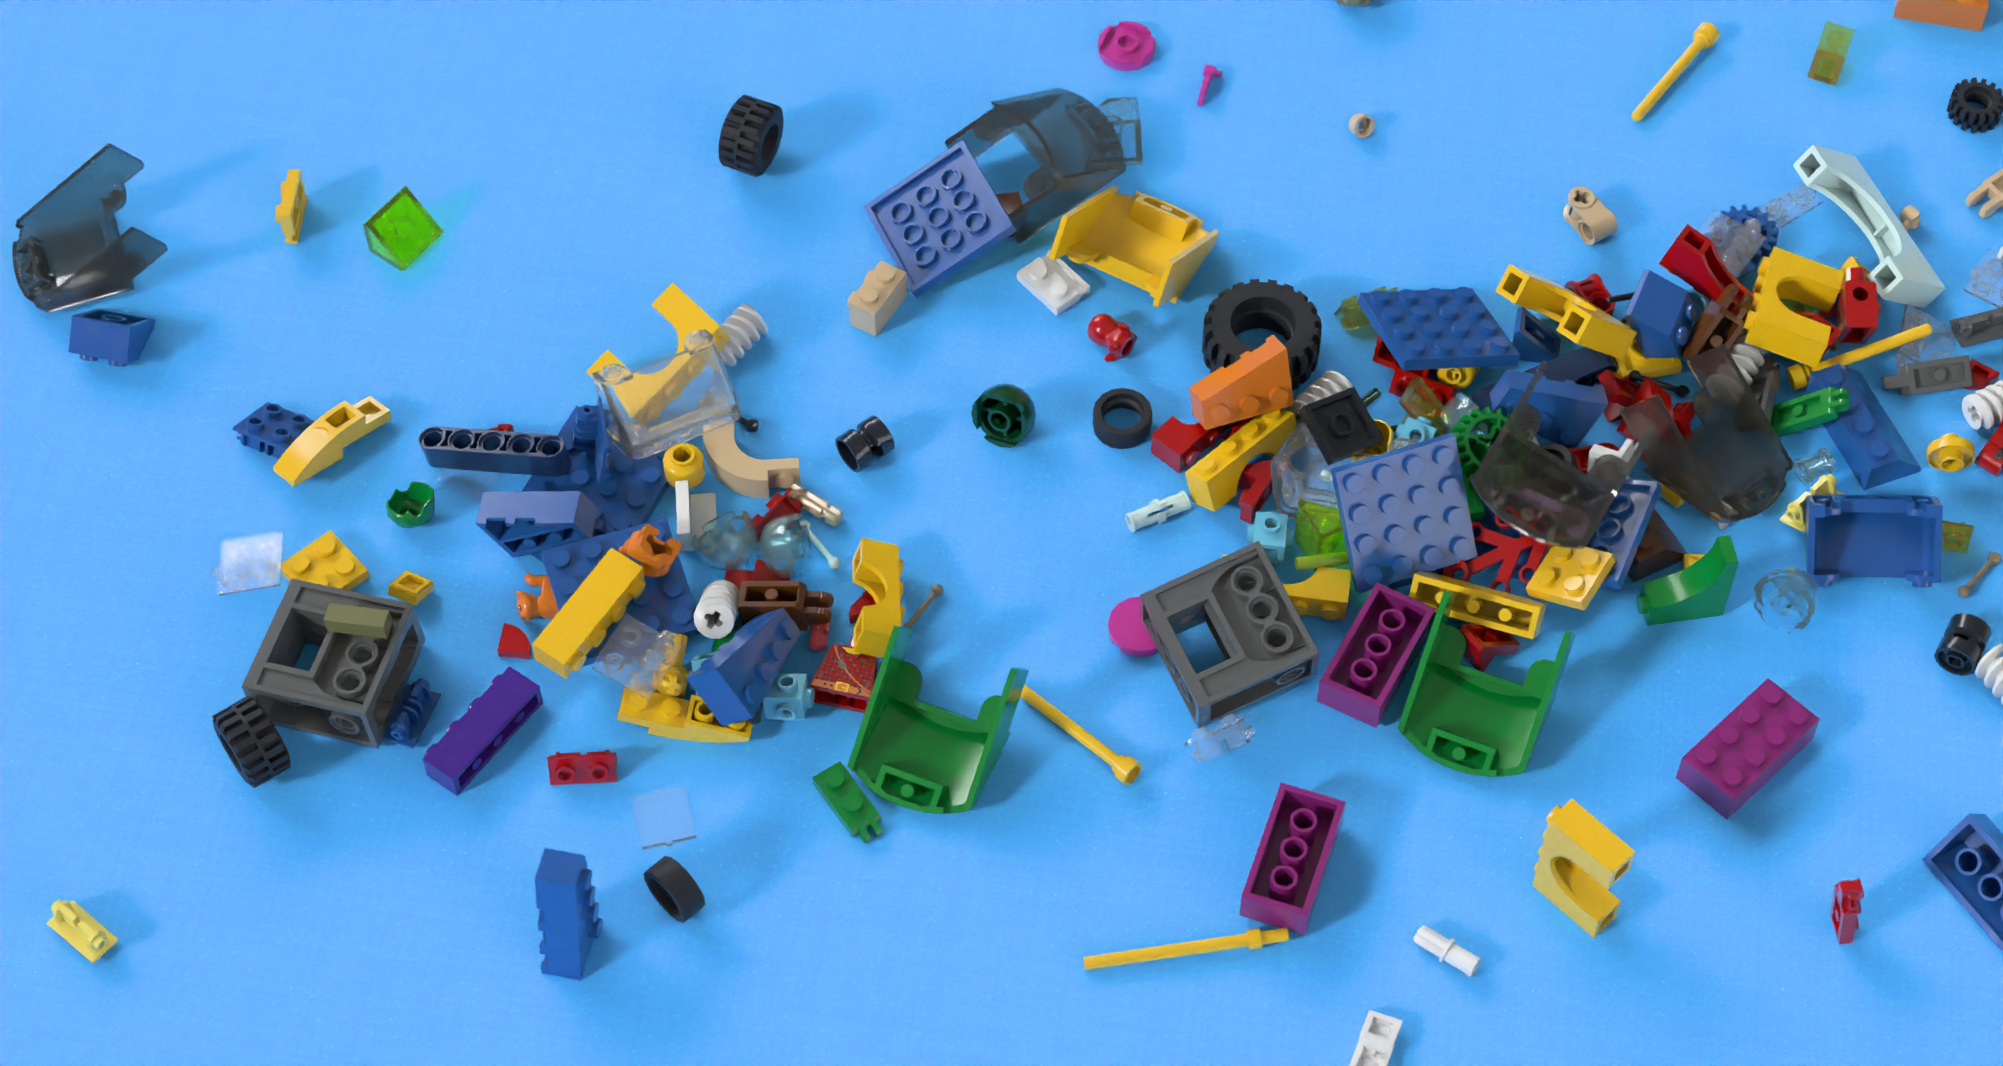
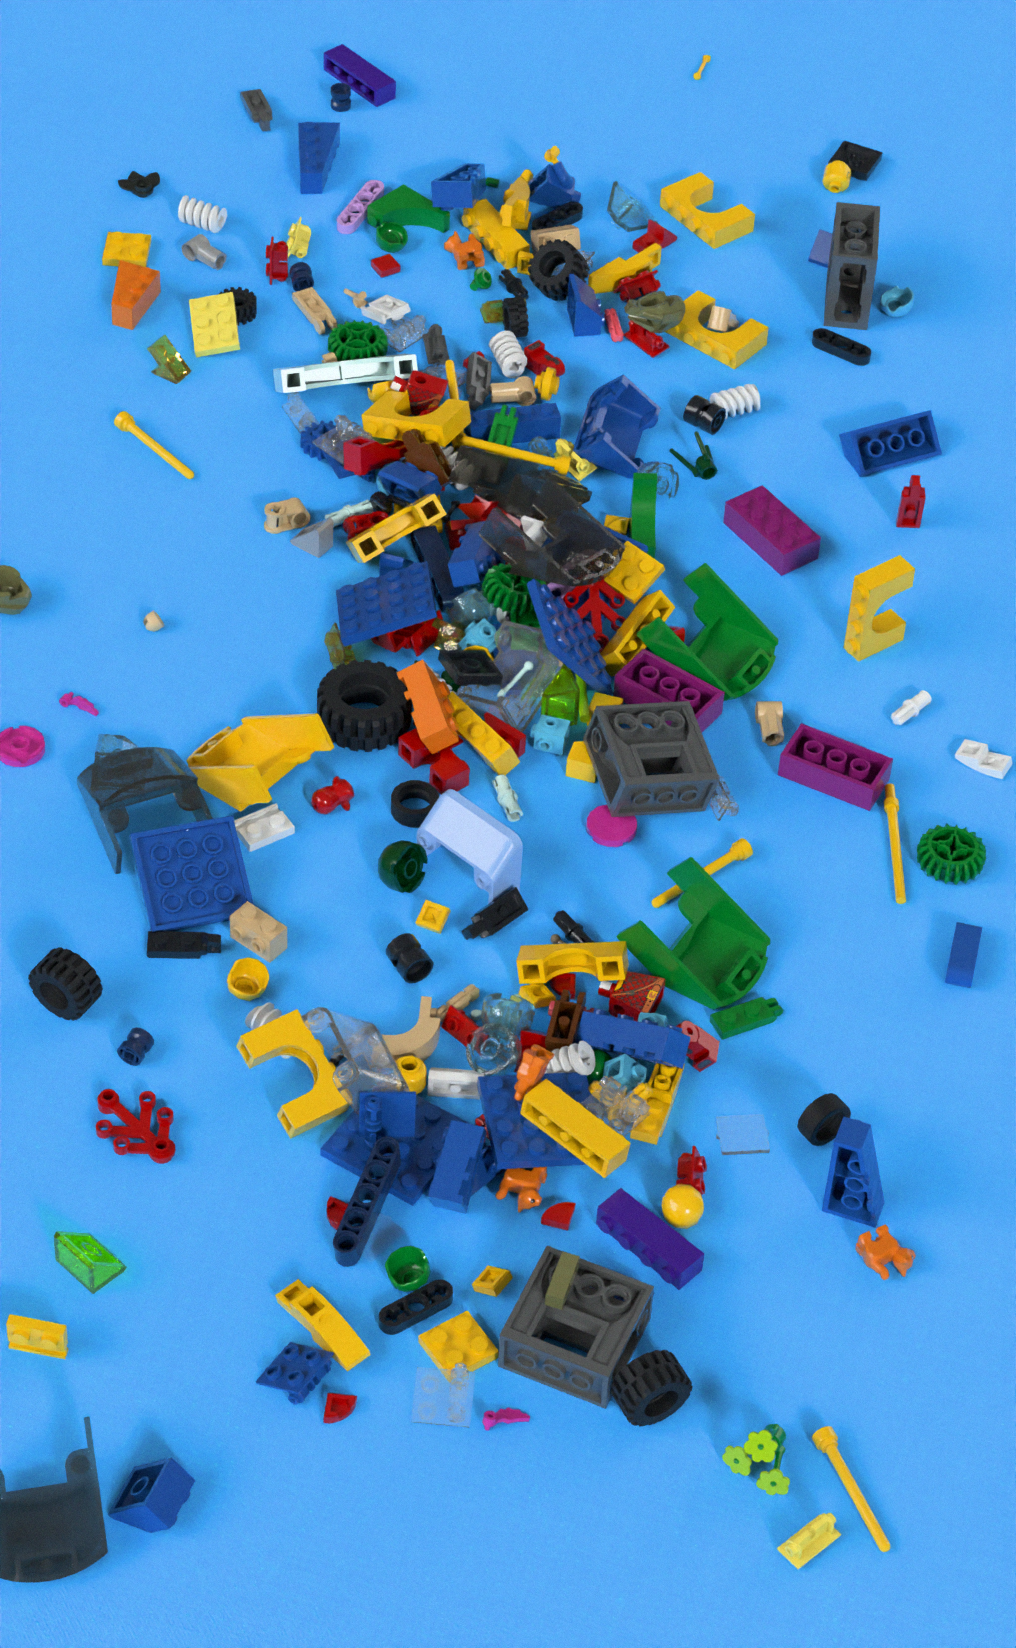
camera: 85 degrees left, 10 degrees down
(208, 875) = (761, 1447): none -> lime plant
(213, 938) = (826, 1441): none -> yellow piece
(235, 623) = (503, 1415): none -> dark pink piece
(237, 475) = (338, 1407): none -> red tile
(374, 537) = (410, 1318): none -> black beam
(493, 977) = (883, 1251): none -> orange animal
(526, 754) = (682, 1206): none -> yellow hair
(586, 245) = (136, 1128): none -> red plant
(692, 220) = (134, 1048): none -> dark blue wheel
(777, 740) = (702, 1046): none -> leg
(803, 300) = (247, 979): none -> yellow hair
(837, 579) = (537, 994): none -> yellow tile
(855, 237) = (182, 944): none -> black hinge
(942, 461) = (433, 916): none -> yellow tile
(947, 605) = (573, 930): none -> black axle
(956, 522) = (496, 915): none -> black hinge
(994, 1039) = (963, 955): none -> blue beam
(1022, 464) = (476, 839): none -> light blue windscreen
(1203, 1015) = (966, 857): none -> green gear
(1378, 779) = (770, 716): none -> tan piece
(1555, 254) = (315, 538): none -> light grey slope
(1617, 280) = (347, 511): none -> light aqua pin
(1792, 486) = (560, 464): none -> yellow piece
(1860, 657) = (704, 464): none -> dark green plant
(1920, 85) = (214, 324): none -> light yellow plate
(1924, 417) = (519, 391): none -> tan piece
(1952, 238) = (357, 341): none -> green gear

